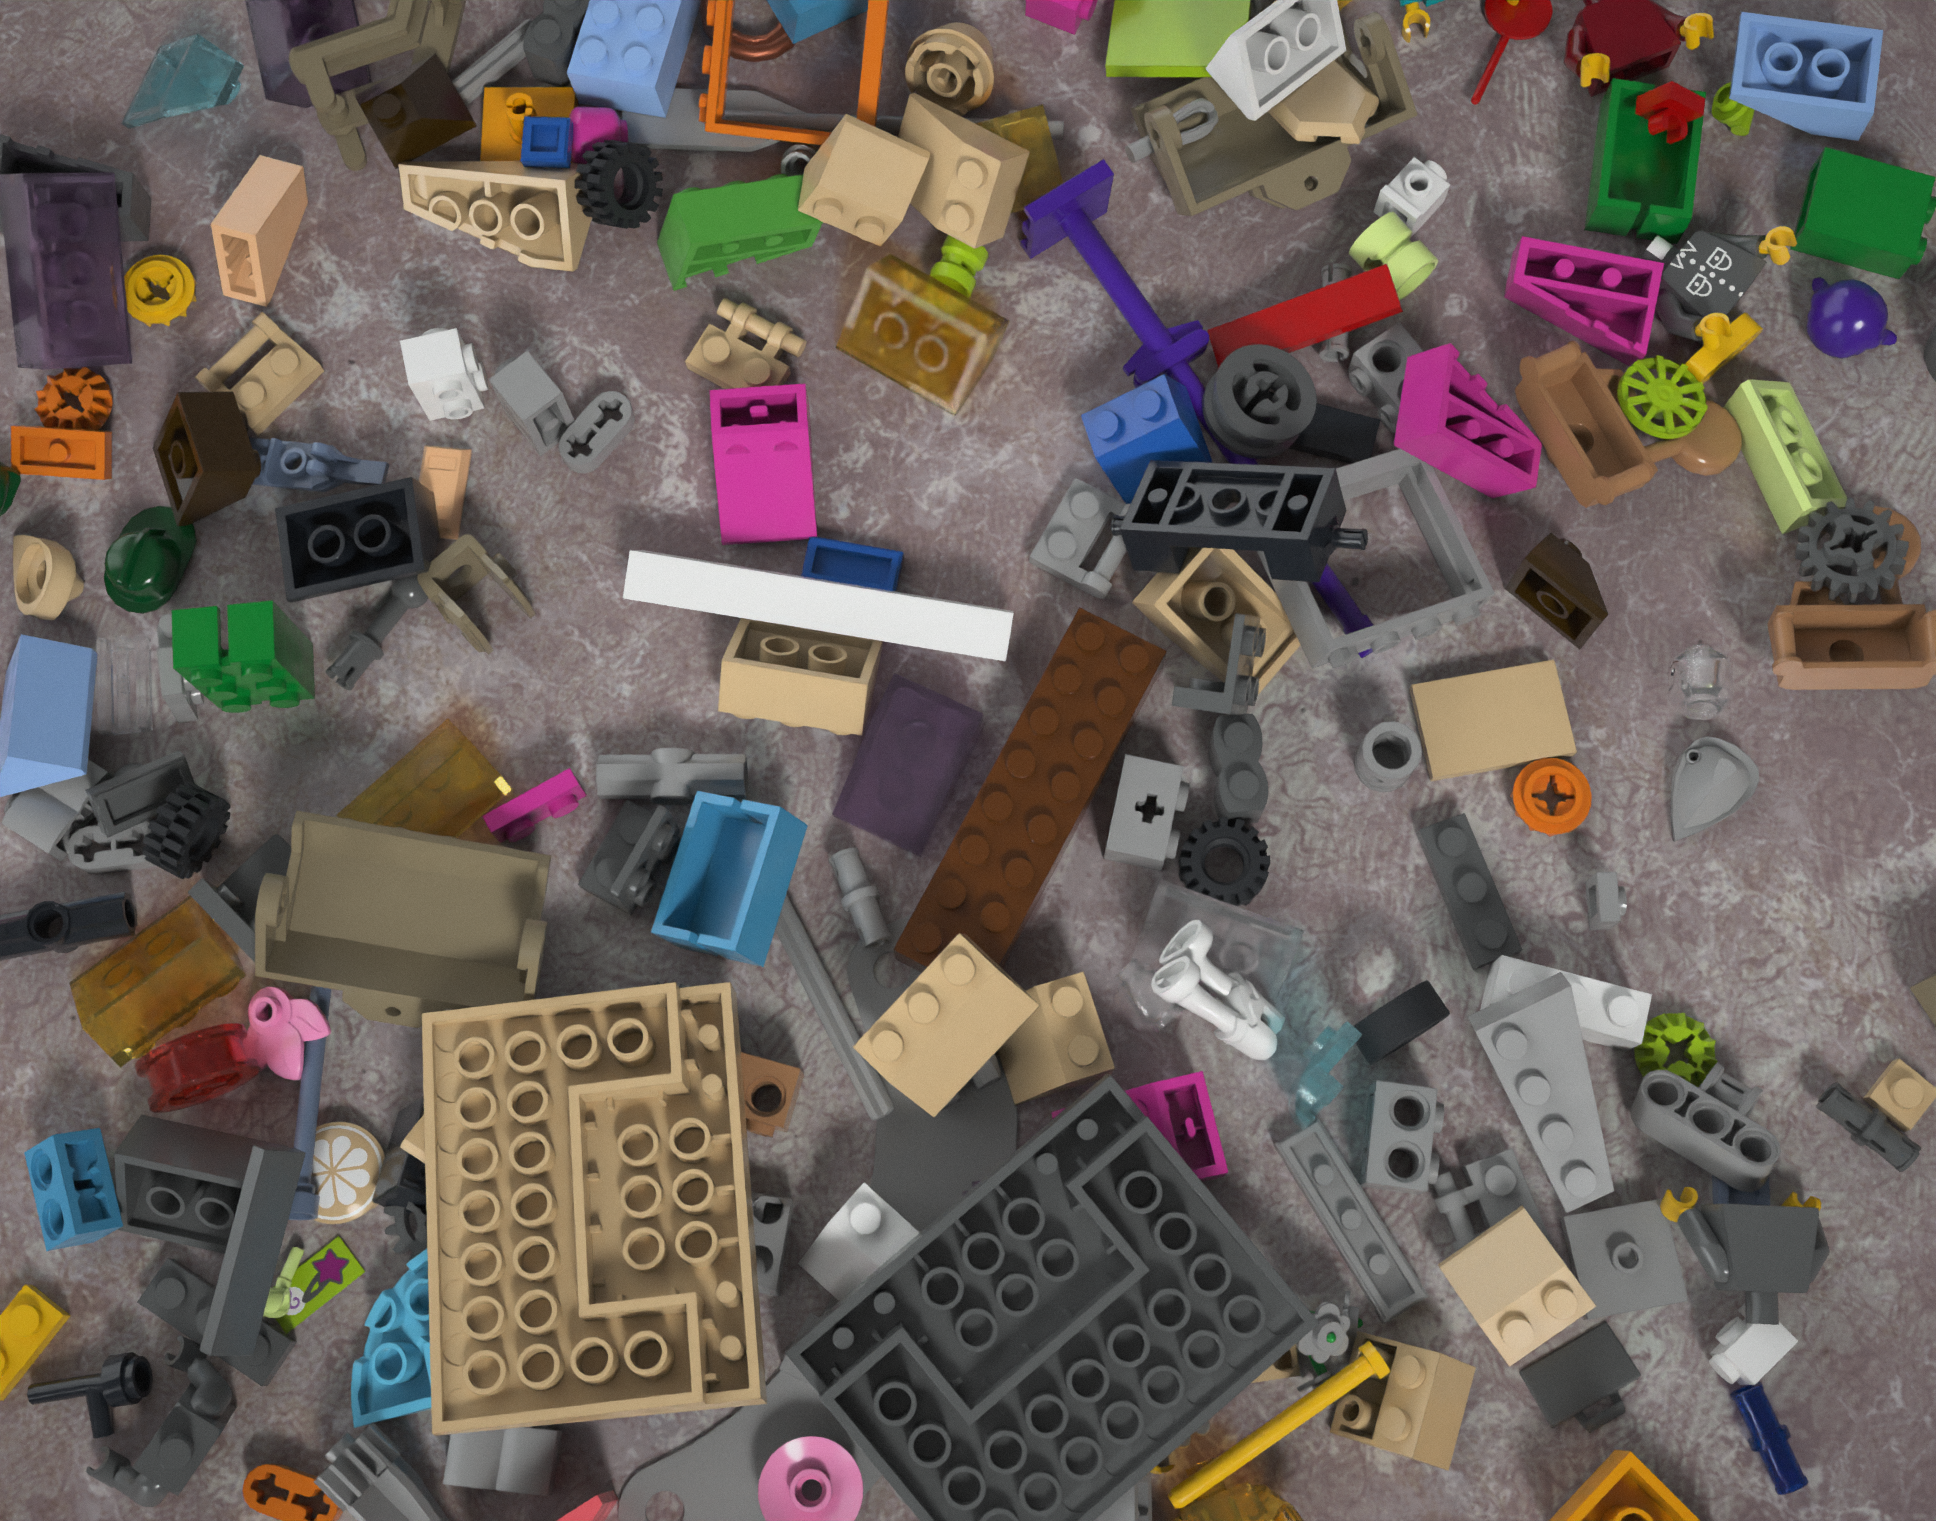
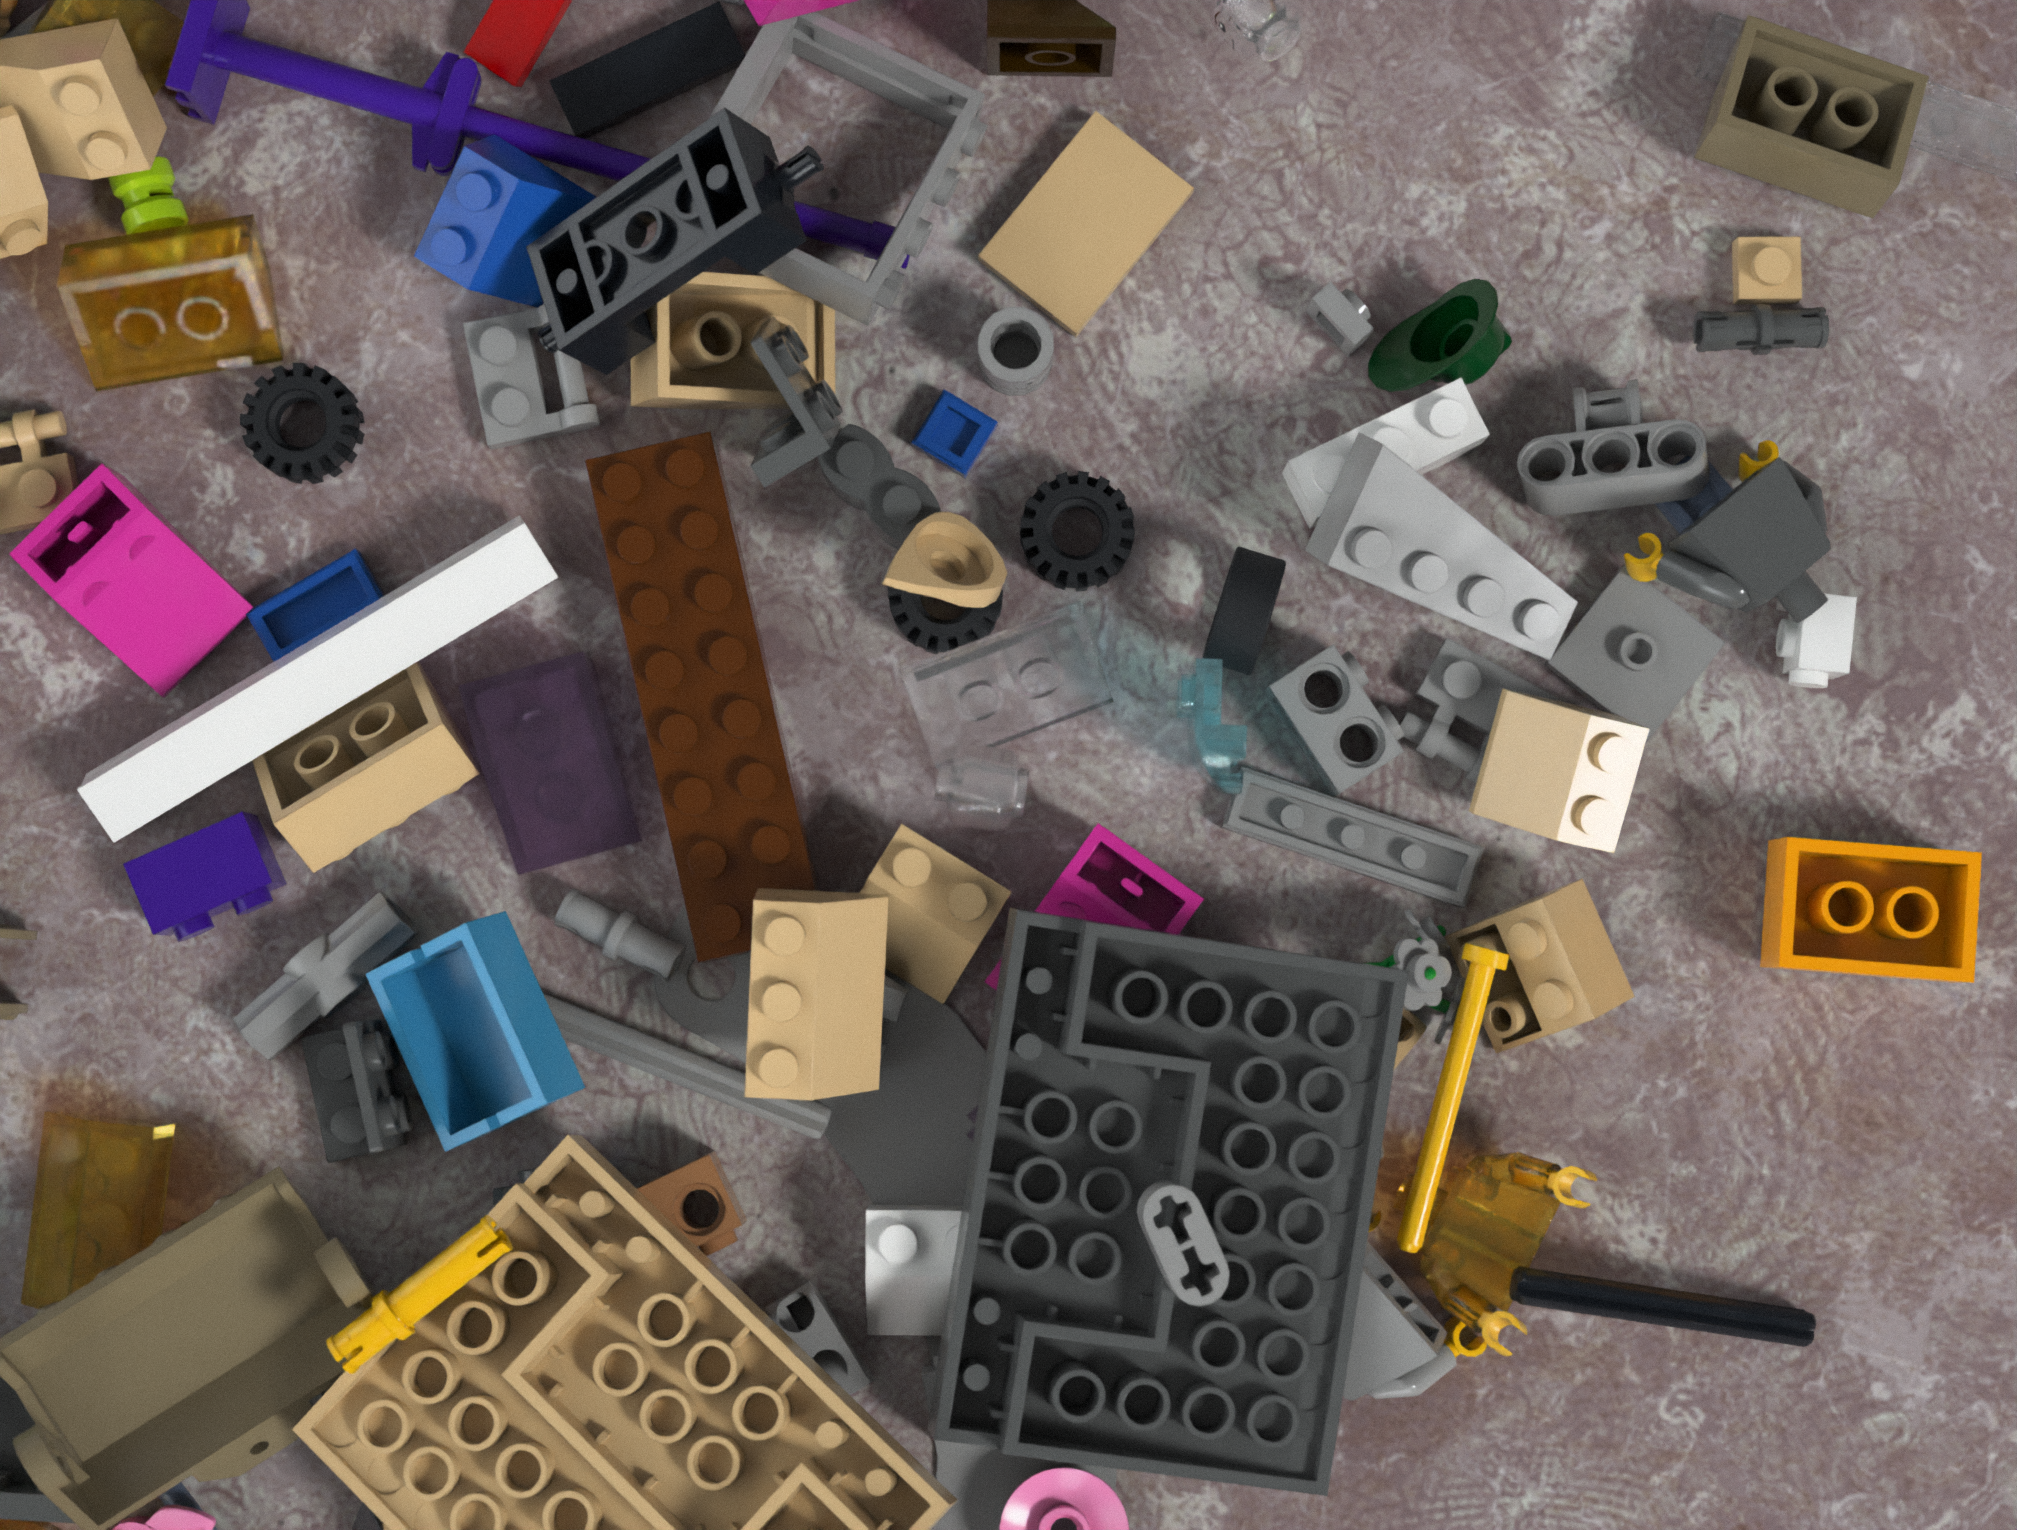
camera: 45 degrees left, 10 degrees up
(518, 816) = (208, 1149): dark pink plate -> none
(563, 996) = (397, 1311): none -> yellow pin
(656, 662) = (205, 876): none -> dark purple brick
(928, 432) = (268, 406): none -> black tyre
(1026, 1361) = (1197, 1236): none -> light grey beam
(1155, 785) = (797, 584): light grey brick -> none
(1239, 1010) = (1081, 732): white piece -> none
(1243, 840) = (948, 561): none -> tan piece
(1245, 380) = (616, 101): dark grey wheel -> none
(1309, 776) = (954, 433): none -> blue tile
(1352, 868) = (1084, 493): none -> black tyre
(1468, 891) = (1202, 417): dark grey plate -> none
(1566, 782) = (1207, 225): orange gear -> none
(1581, 1377) = (1683, 798): dark grey piece -> none
(1658, 967) = (1443, 341): none -> dark green piece
(1675, 1028) = (1506, 388): lime gear -> none
(1710, 786) = (1349, 114): light grey piece -> none
(1769, 1438) = (1899, 708): clear blue pin -> none

